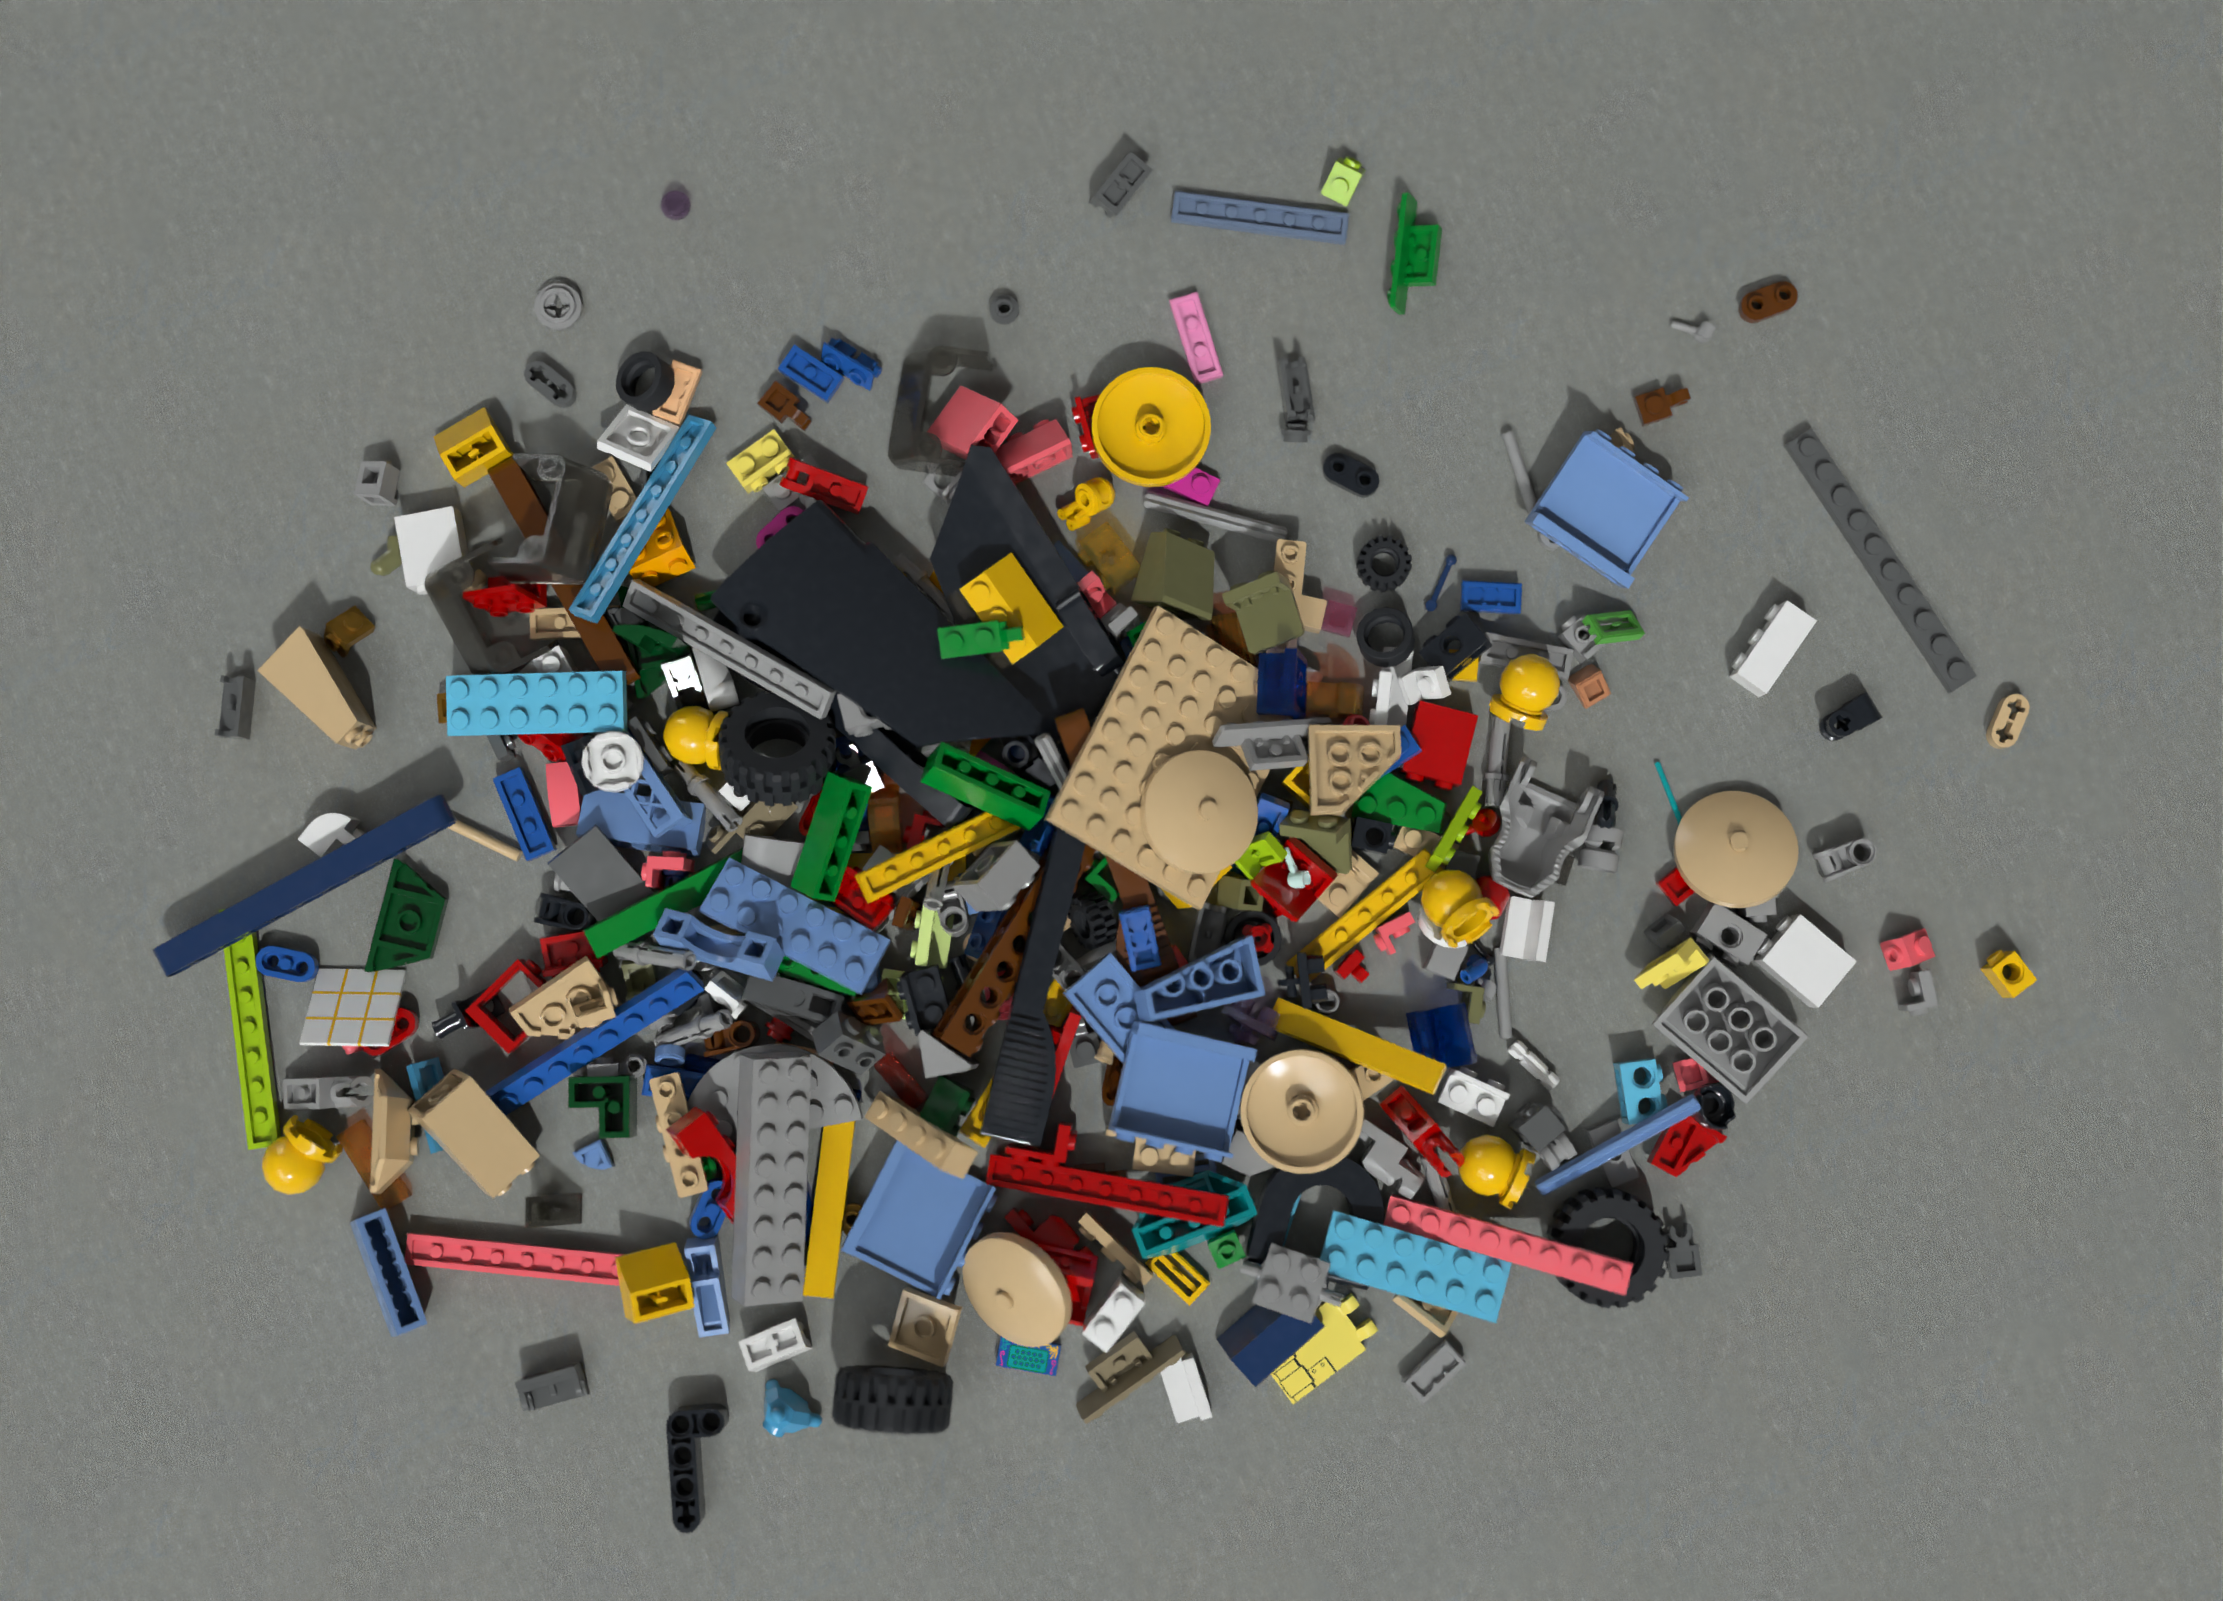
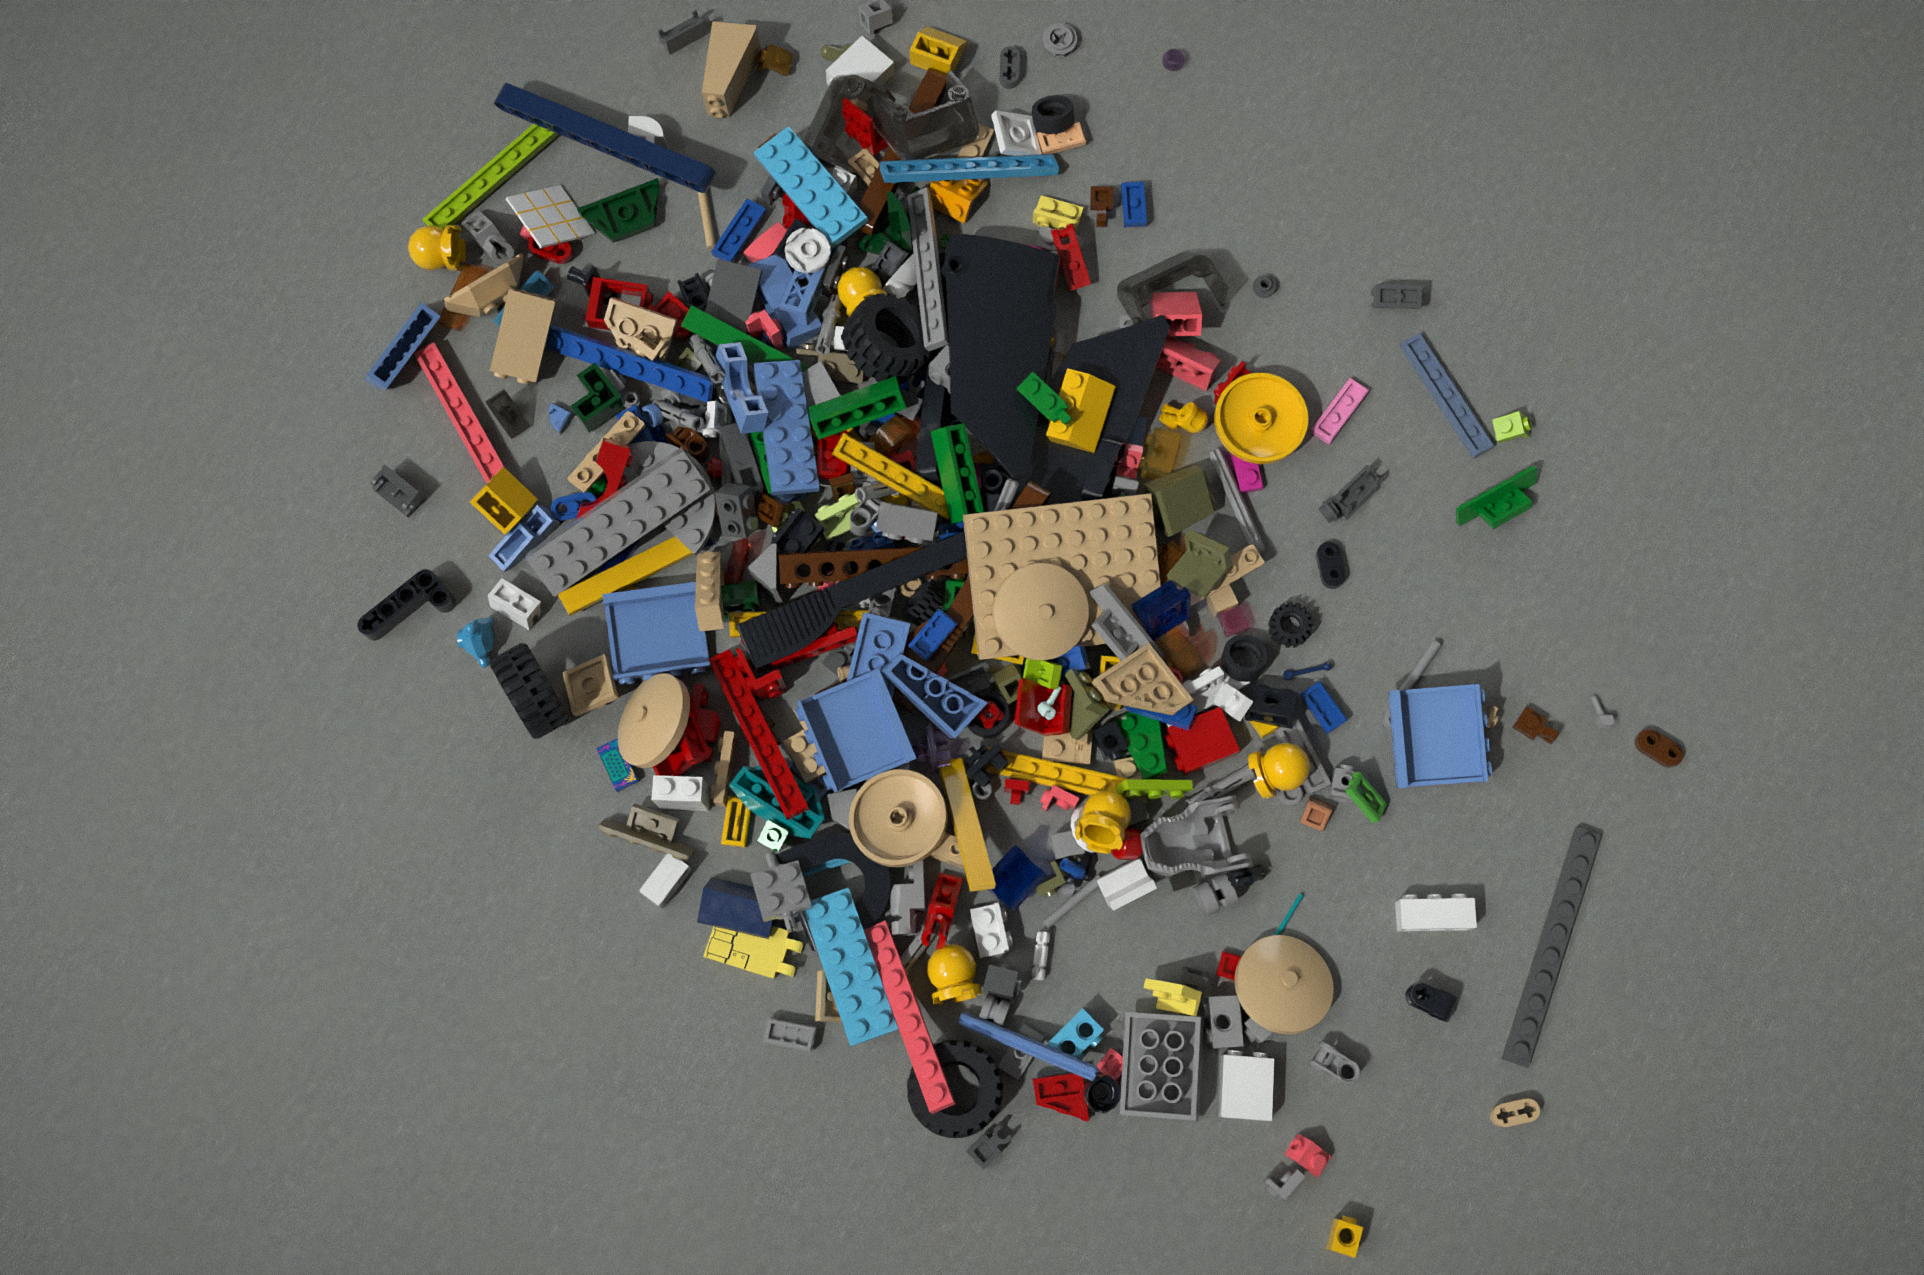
camera: 55 degrees right, 10 degrees down
(288, 965) = (550, 166): blue plate -> none
(839, 358) = (1157, 213): blue hinge -> none
(1485, 823) = (1172, 807): red piece -> none

